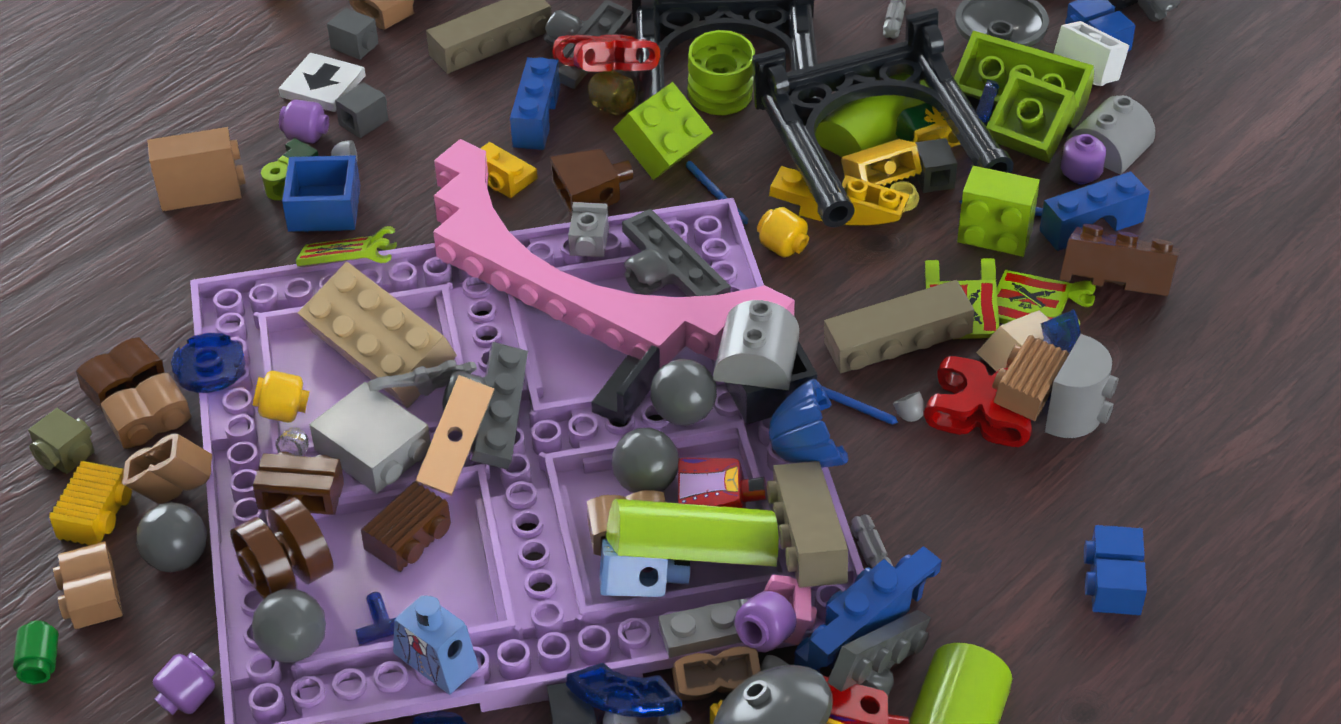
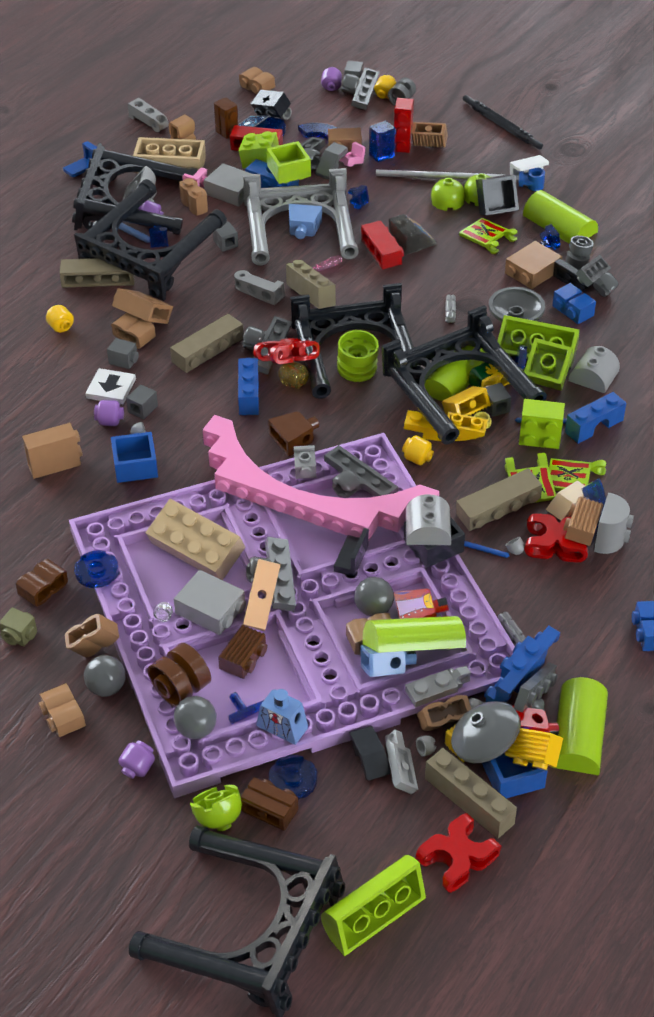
camera: 10 degrees left, 0 degrees up
(35, 652) = (41, 753): green brick -> none
(90, 503) = (47, 662): yellow brick -> none
(146, 410) = (64, 602): medium nougat brick -> none
(275, 172) = (103, 448): lime leg -> none
(280, 396) = (148, 584): yellow head -> none
(311, 480) = (170, 632): reddish brown brick -> none
(348, 249) = (159, 490): lime flag -> none
(424, 379) = (233, 563): light grey piece -> none
(507, 172) = (244, 431): yellow bracket -> none
(622, 693) = (395, 731): clear blue tile -> none
(662, 130) = (332, 396): lime piece -> none
(683, 392) = (388, 553): dark grey piece -> none
(711, 186) = (364, 425): blue axle -> none
(765, 621) = (469, 679): medium lavender head -> none
(798, 430) = (462, 568): blue hair -> none
(801, 602) = (482, 668): bright pink bracket -> none
(808, 524) = (480, 621): dark tan brick -> none
(1083, 158) = (582, 386): medium lavender head -> none
(1093, 47) = (574, 317): white brick -> none
(1120, 260) = (618, 445): reddish brown wedge -> none

